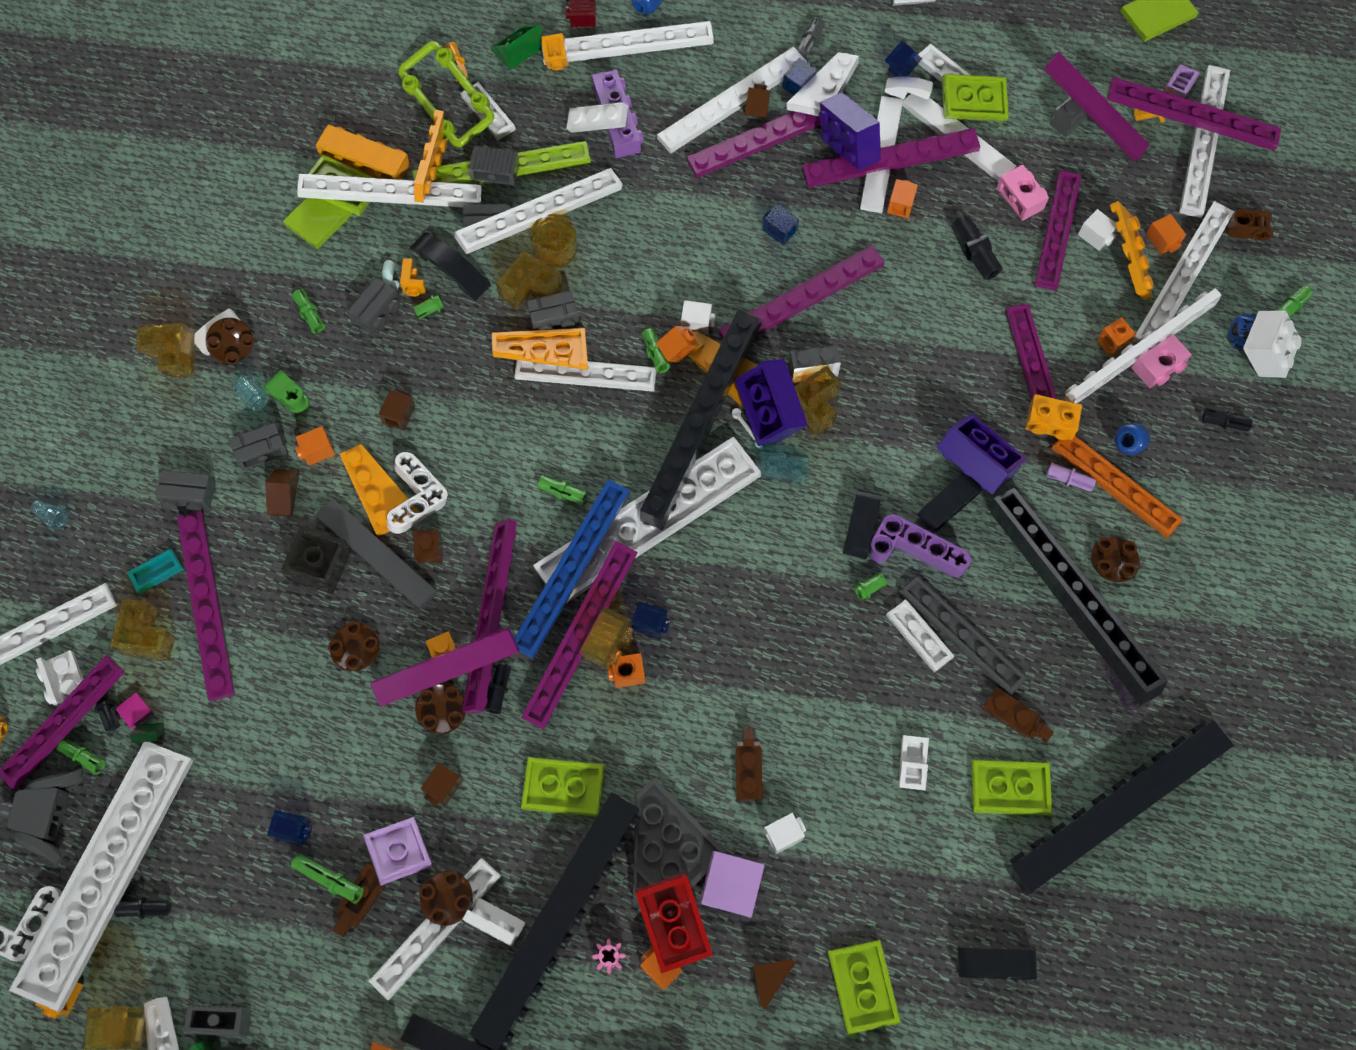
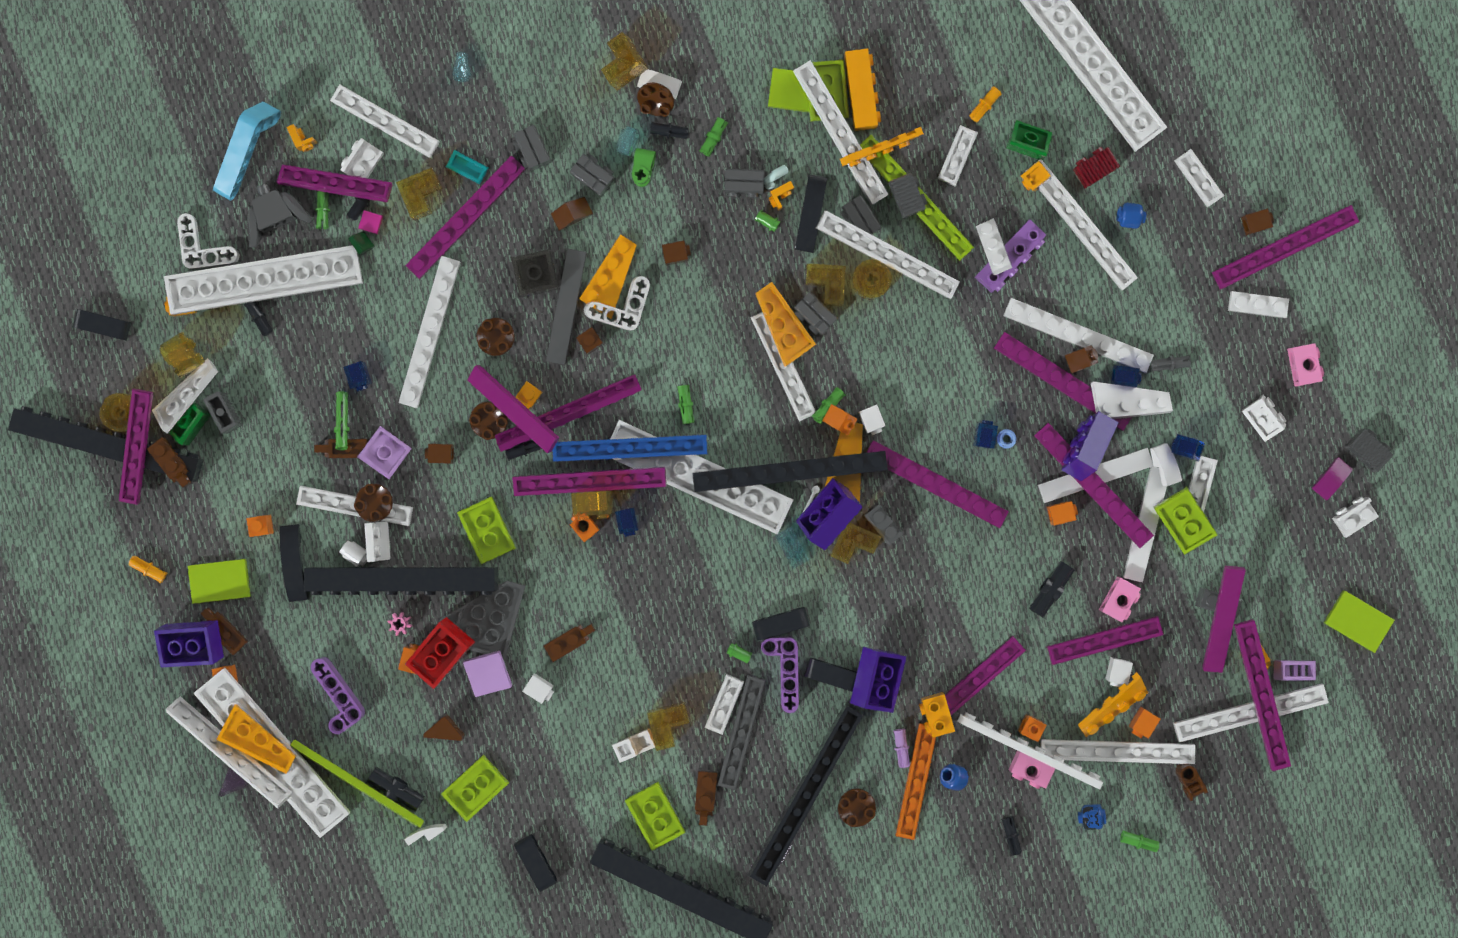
camera: 60 degrees right, 20 degrees up
(270, 349) = (669, 130): none -> black axle
(300, 719) = (429, 332): none -> white plate
(314, 446) = (614, 214): orange brick -> none
(446, 60) = (945, 84): lime bar -> none
(491, 961) = (354, 553): none -> white brick
(797, 204) = (1012, 436): none -> light blue plate
(904, 711) = (663, 720): none -> clear yellow brick
(1272, 344) = (1087, 842): white brick -> none

